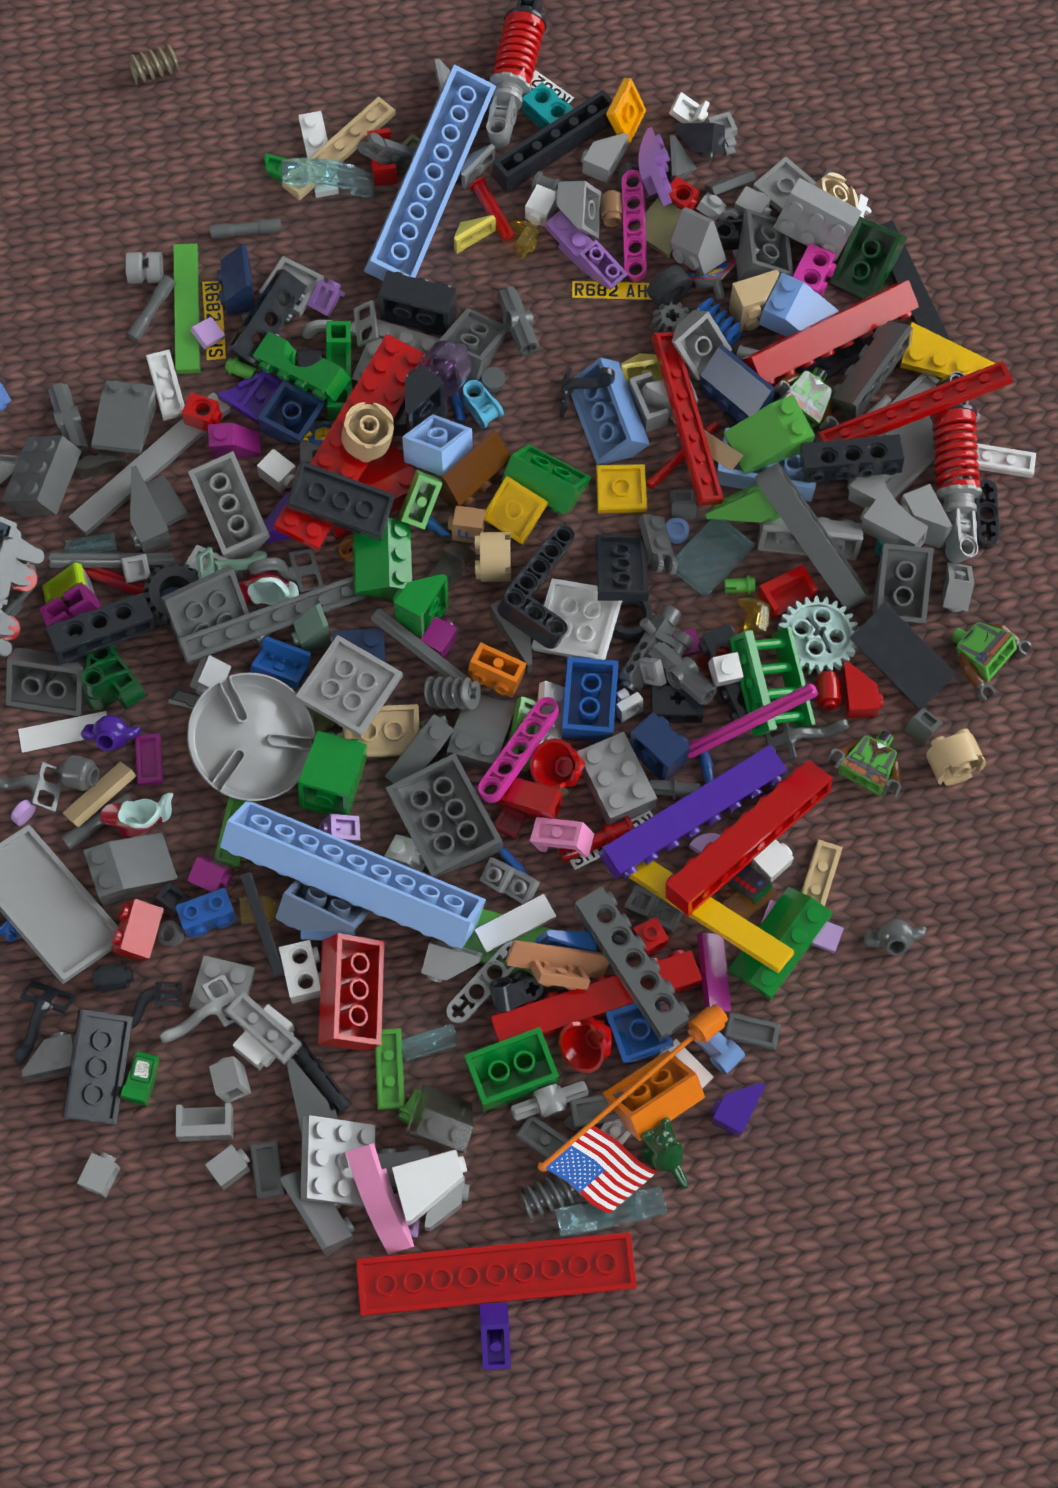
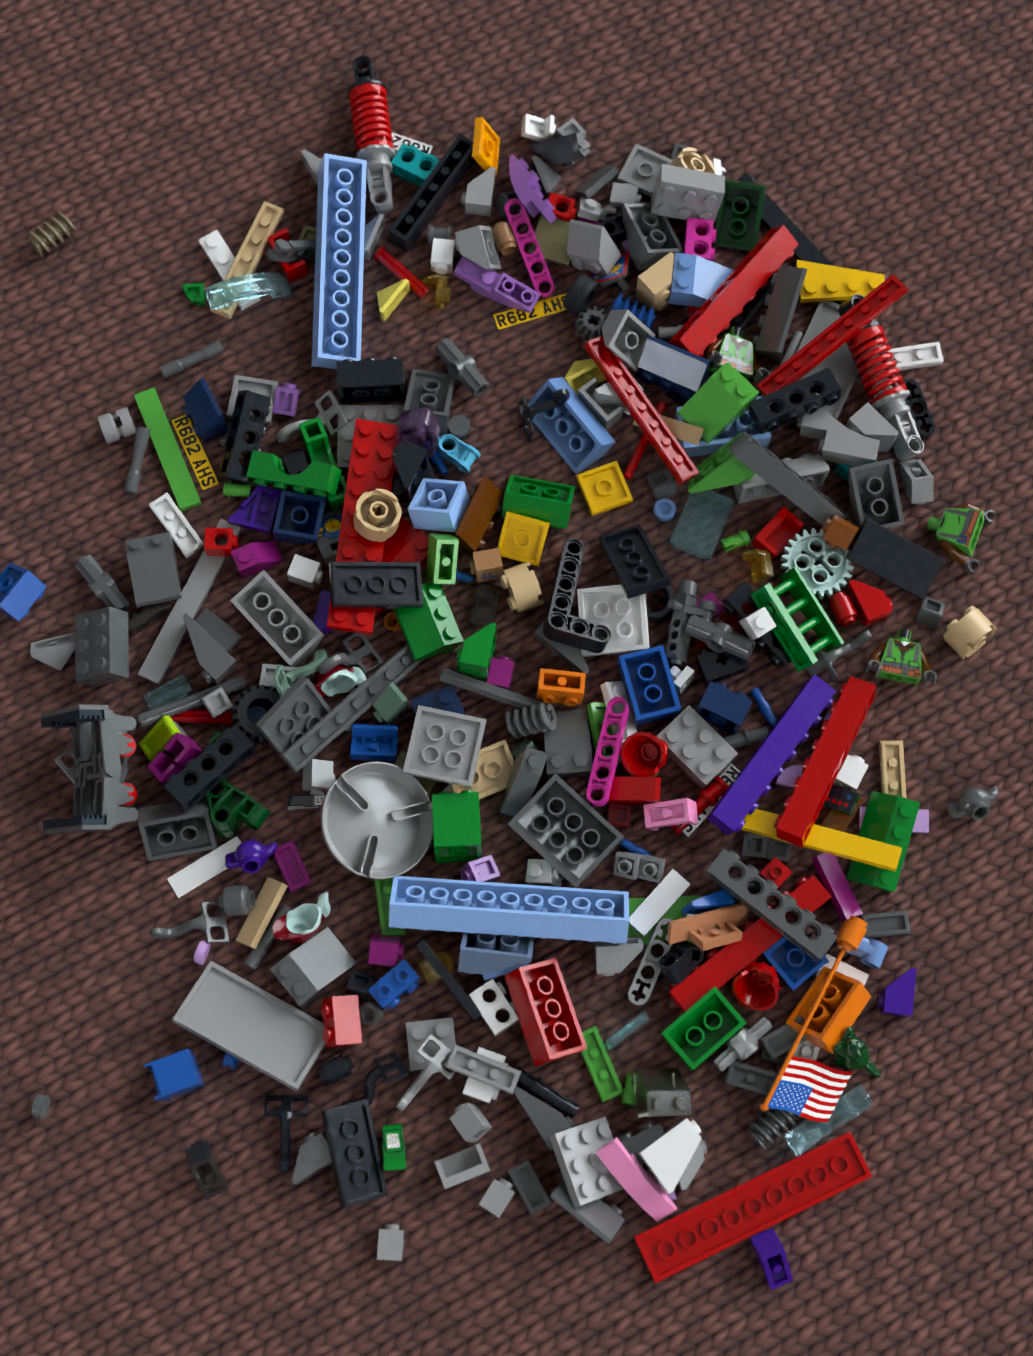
camera: 20 degrees left, 5 degrees up
(207, 333) = (195, 466): lavender tile -> none
(652, 671) = (693, 643): light grey tile -> none
(658, 543) = (655, 528): dark grey hinge -> none
(752, 720) = (797, 659): dark pink axle -> none
(851, 608) = (839, 532): none -> dark orange brick

